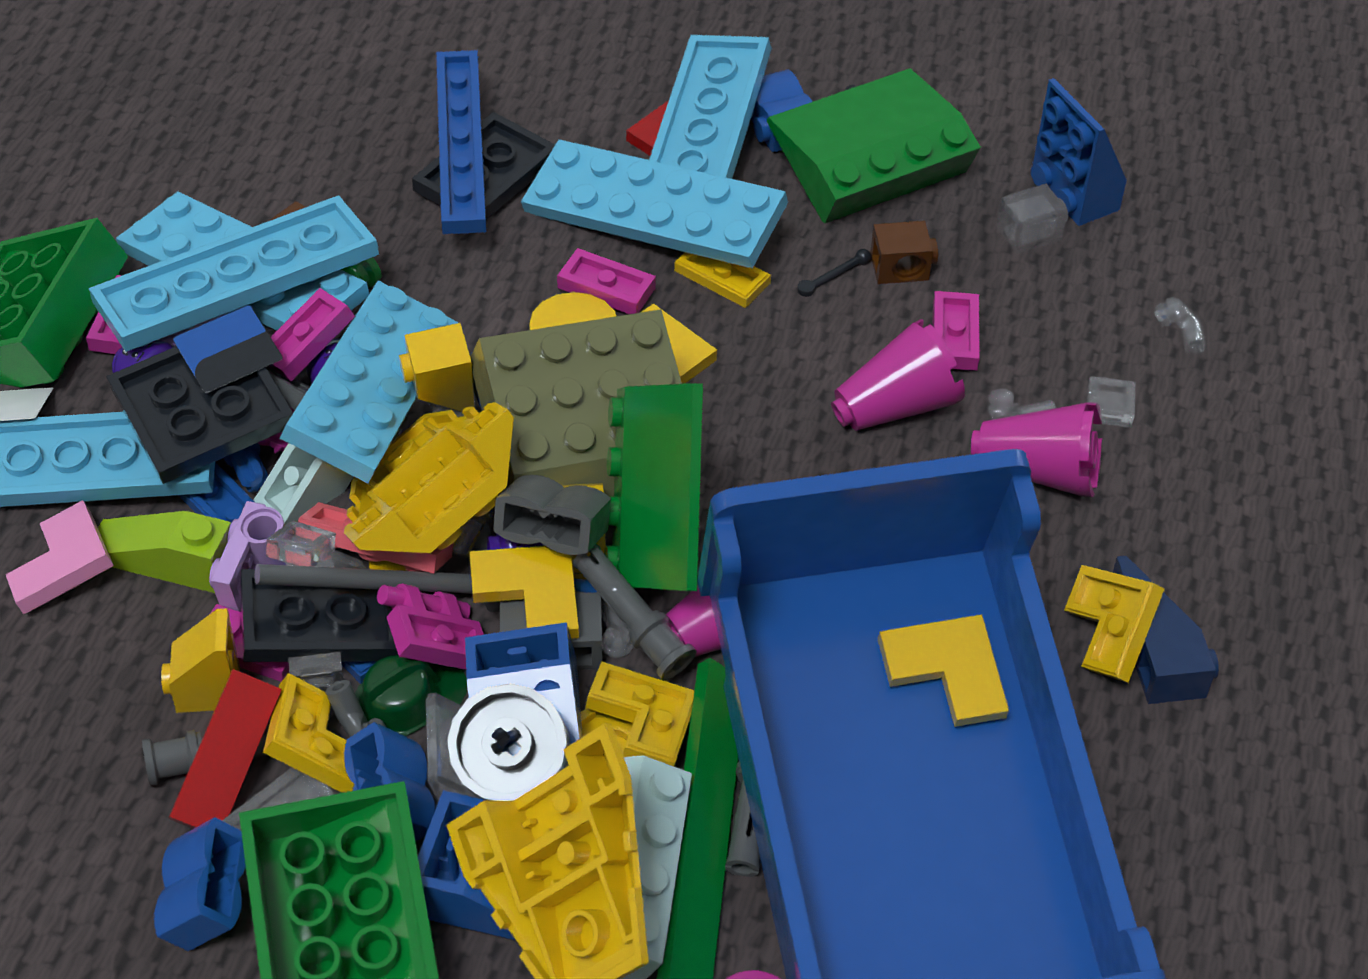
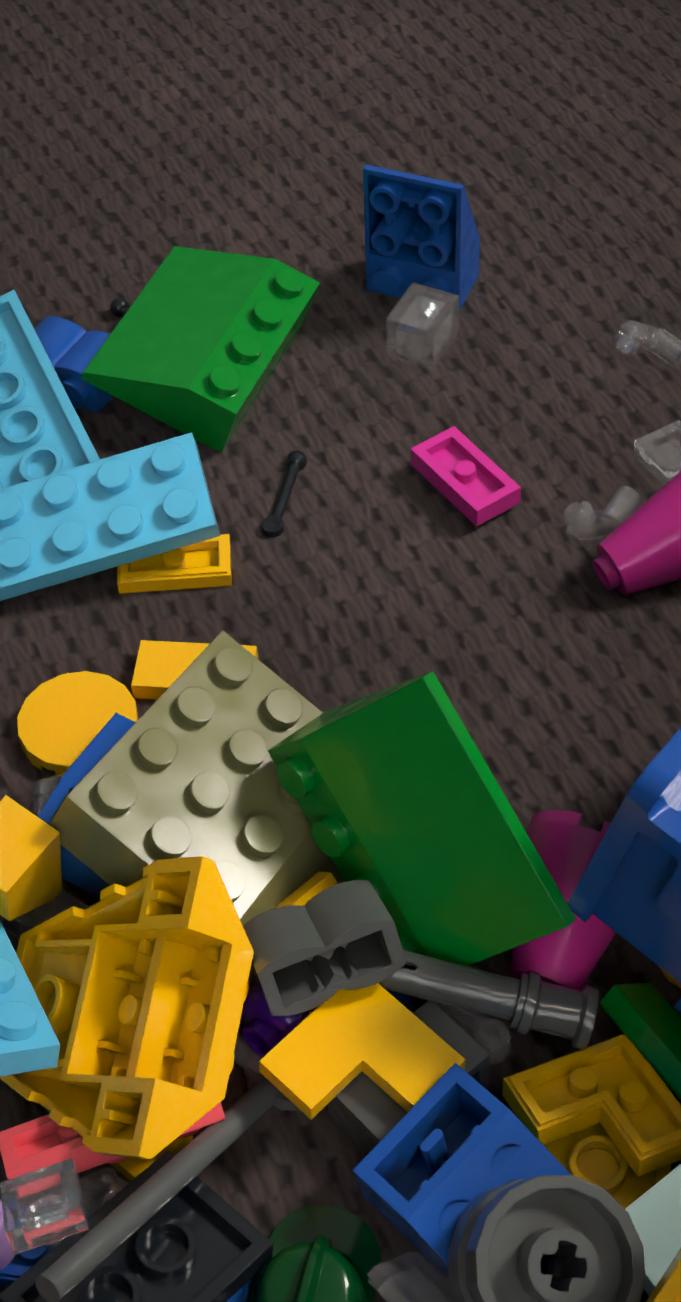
camera: 35 degrees left, 0 degrees up
(428, 625) = (283, 1187): dark pink plate -> none
(611, 281) = (66, 646): dark pink plate -> none
(900, 381) = (481, 552): dark pink cone -> none
(902, 252) = (338, 430): reddish brown brick -> none

